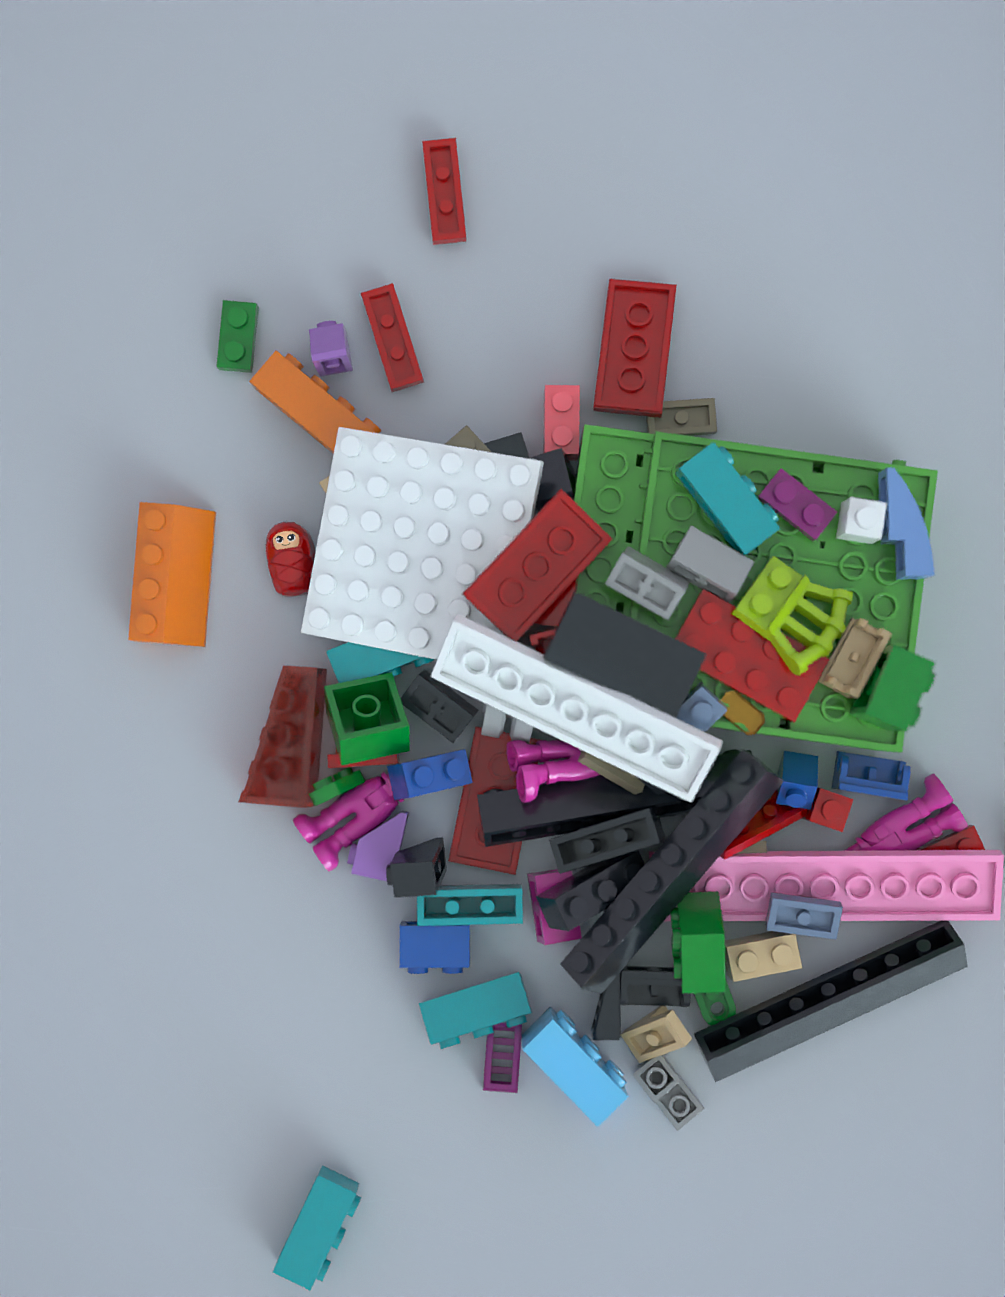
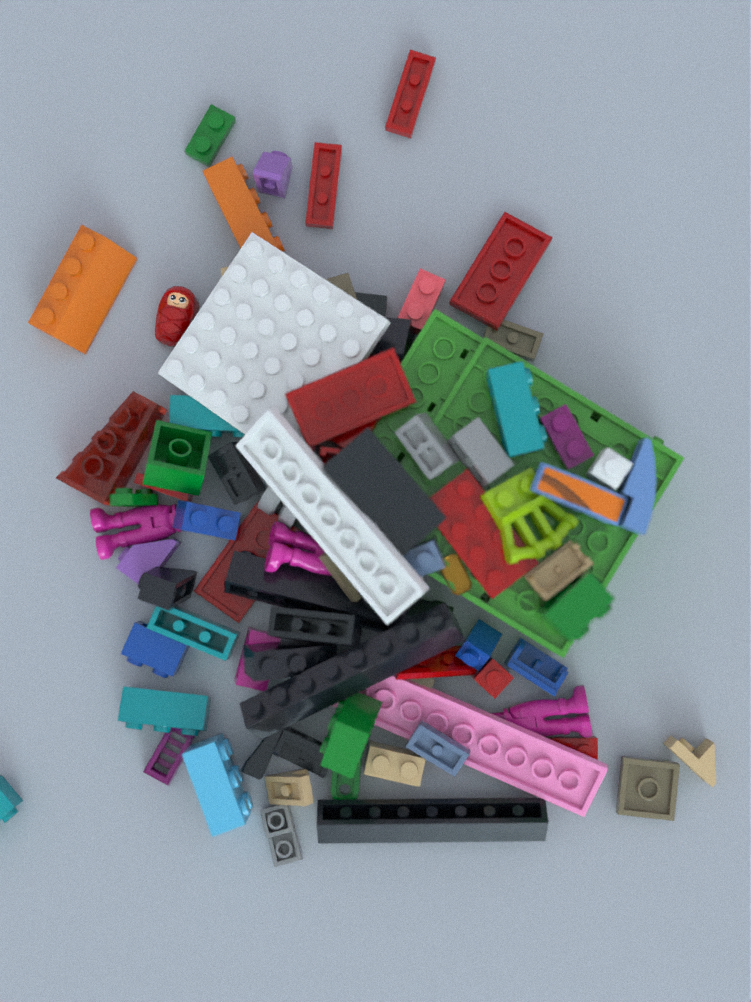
camera: 30 degrees right, 0 degrees up
(841, 563) = (579, 494): none -> slope

